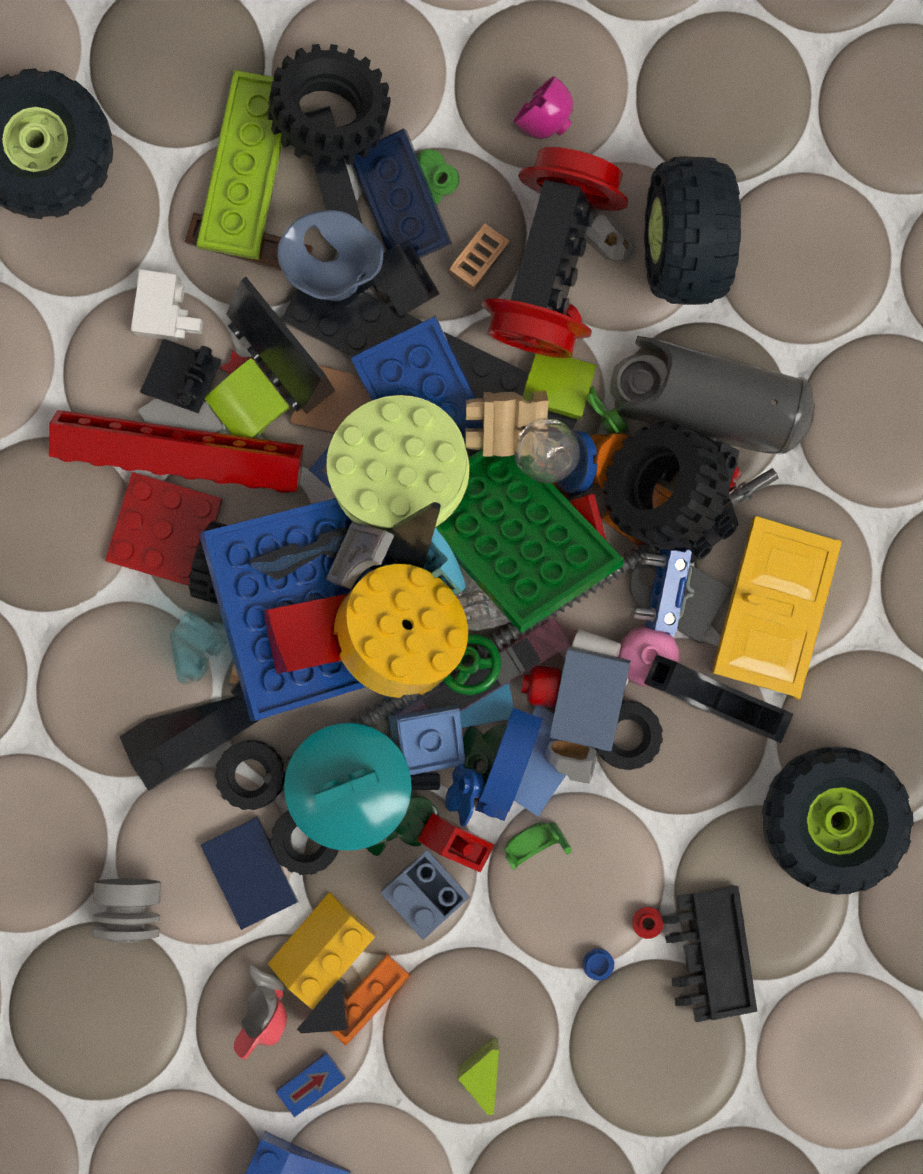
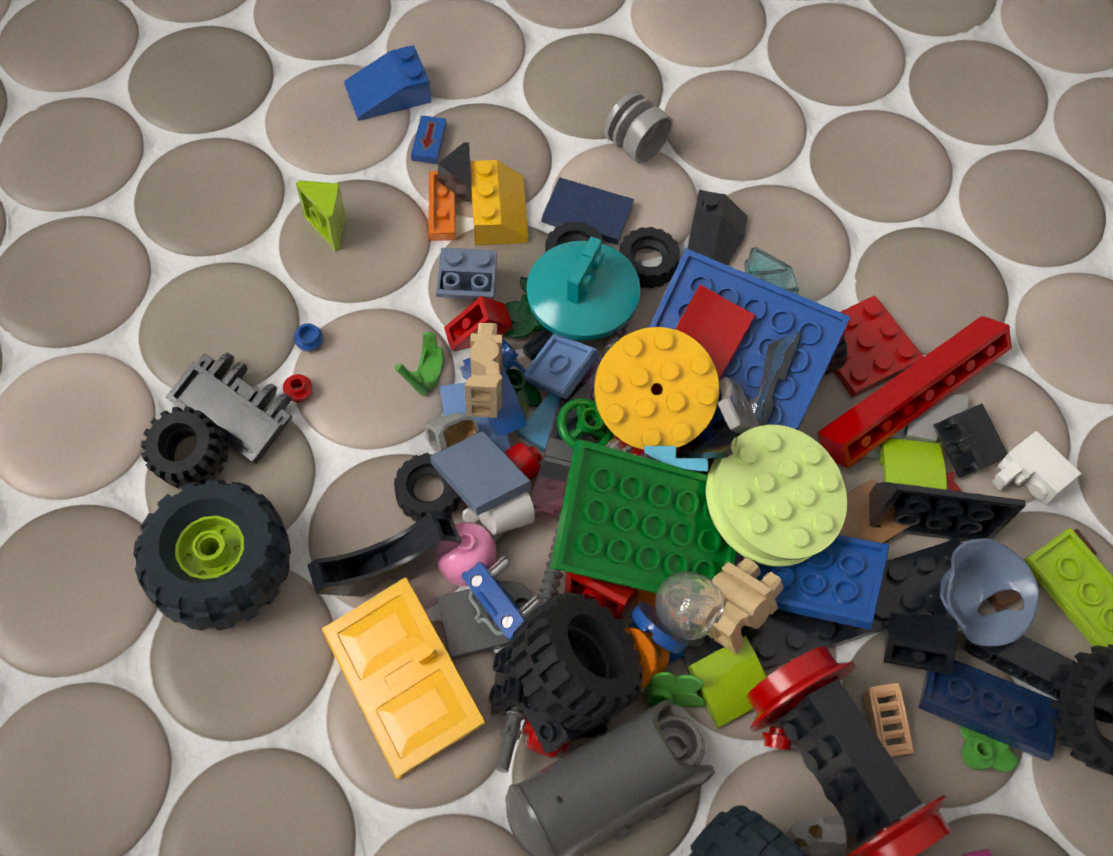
camera: 130 degrees right, 25 degrees down
(265, 1014) = (492, 142): hair -> none
(518, 768) = (484, 386): none -> tan hips
(806, 946) = (169, 432): none -> black tyre

